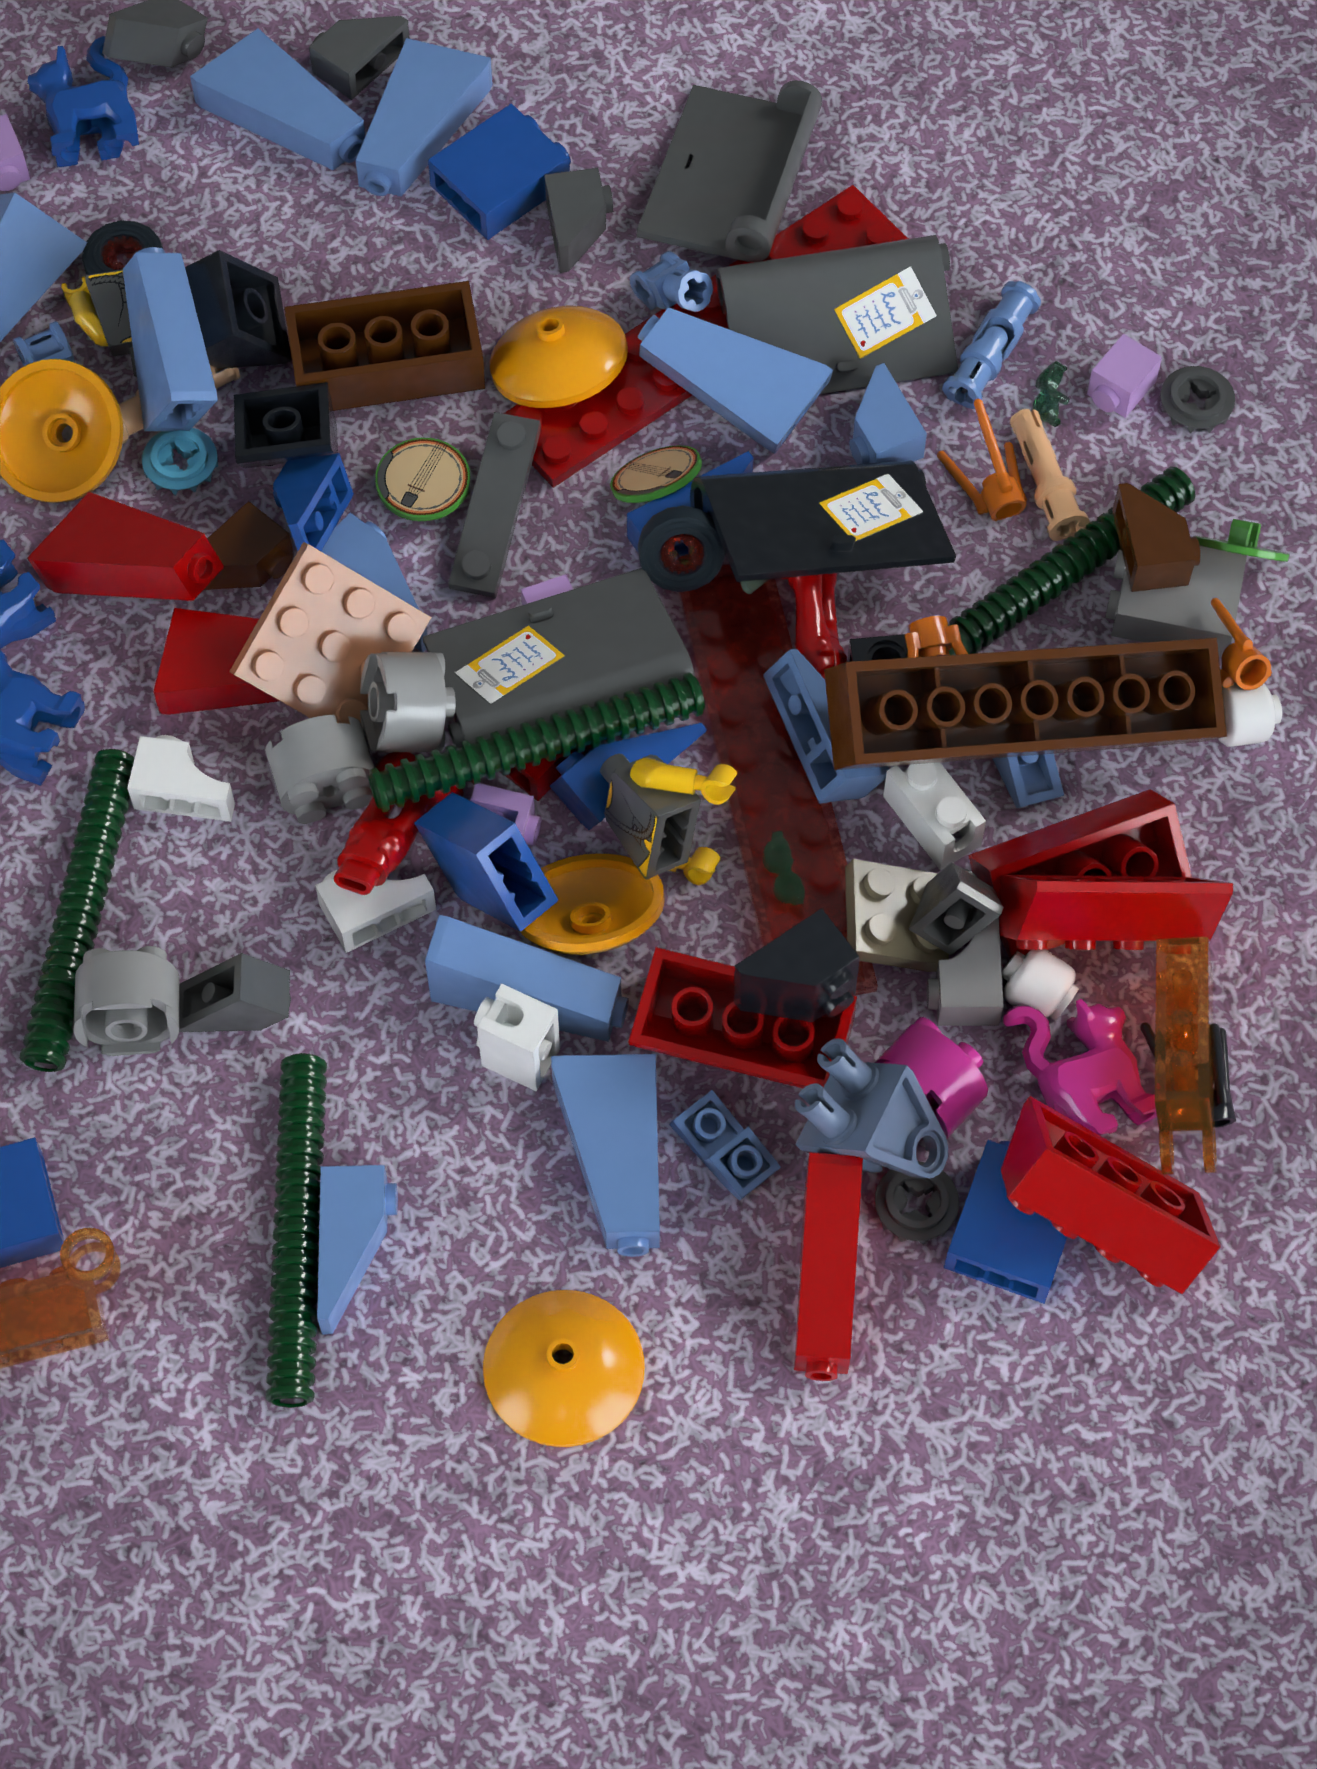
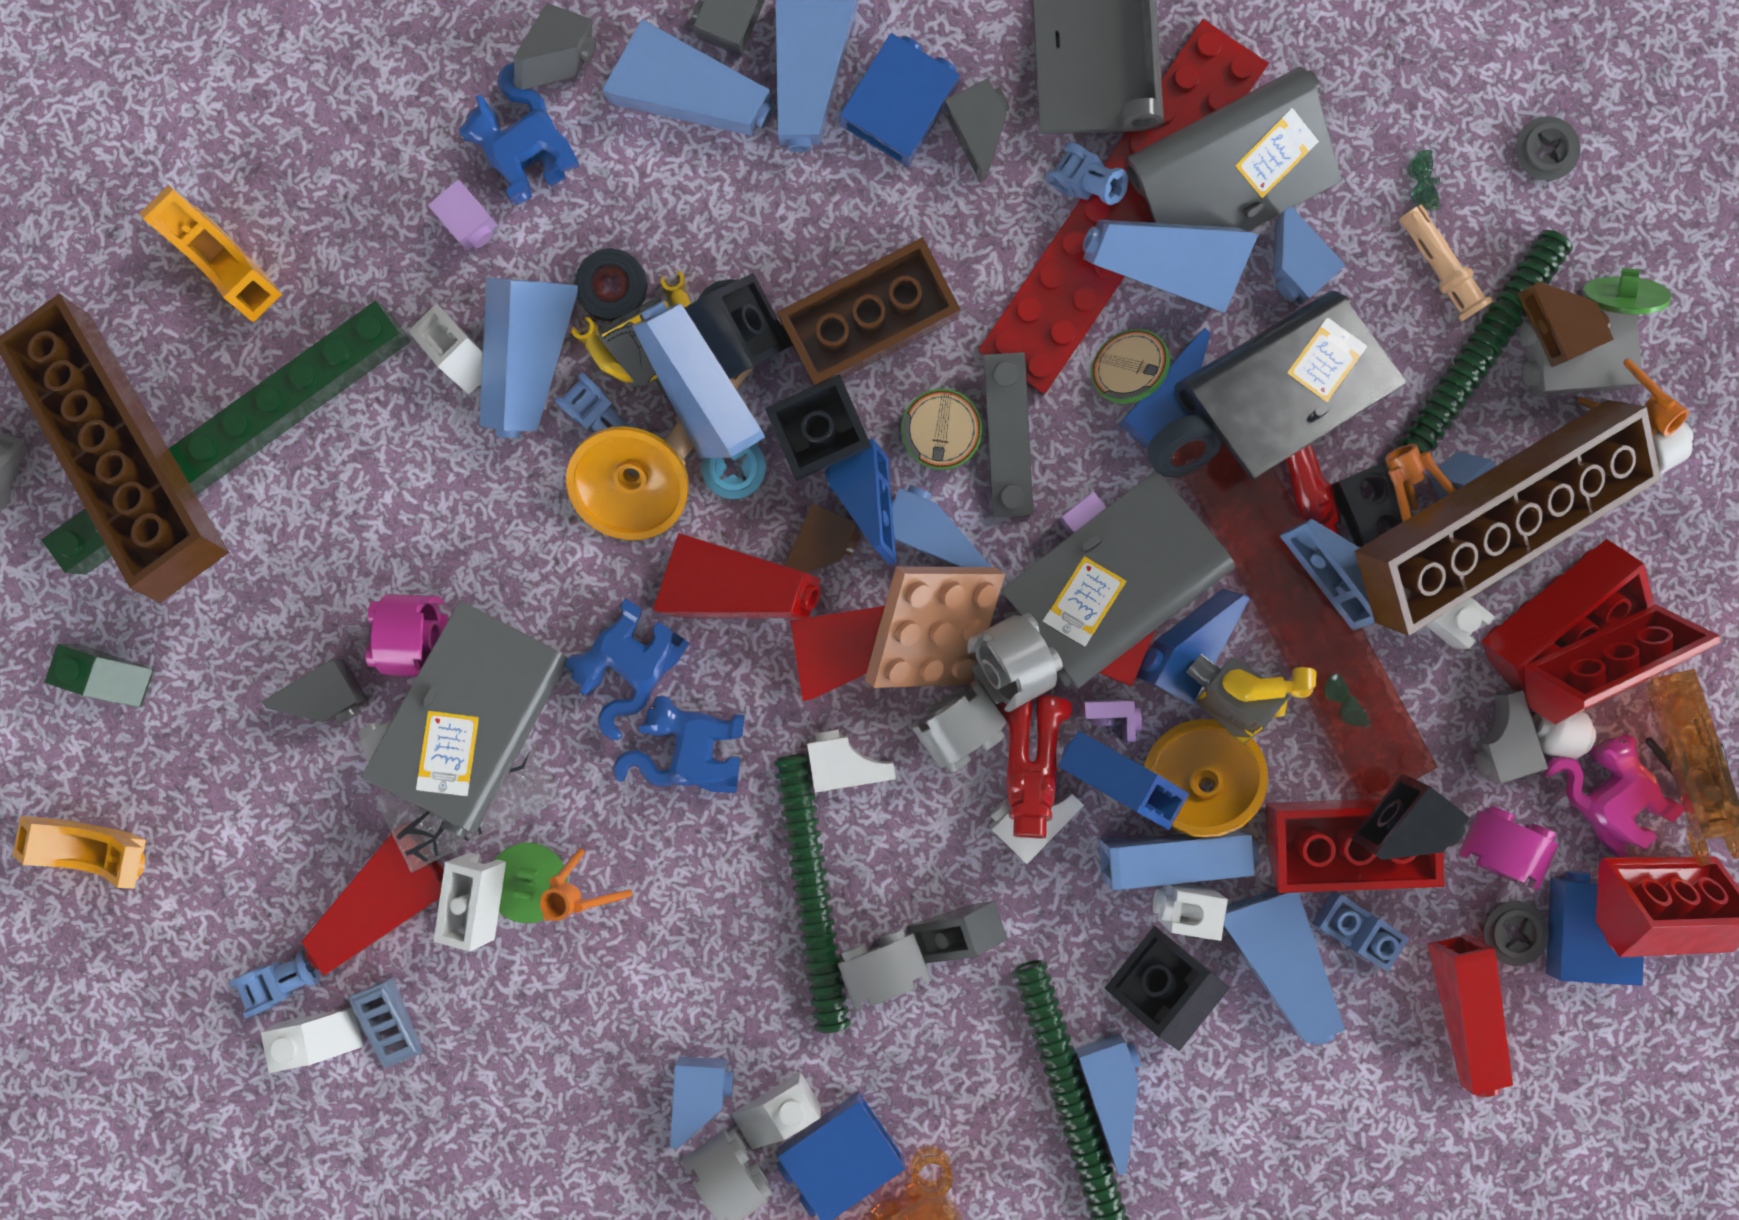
camera: 15 degrees left, 25 degrees up
(464, 1136) = (1167, 988): none -> black slope
(537, 742) = (1133, 667): dark green piece -> none
(558, 356) = (1017, 296): light orange dish -> none
(570, 1400) = (1278, 1118): light orange dish -> none
(871, 1114) = (1486, 912): sand blue piece -> none
(879, 914) = (1438, 708): dark tan plate -> none
(955, 908) = (1496, 700): dark grey slope -> none
(992, 343) = (1366, 152): medium blue piece -> none
(1002, 490) = (1414, 293): orange plant -> none
(1123, 376) = (1485, 149): lavender brick -> none

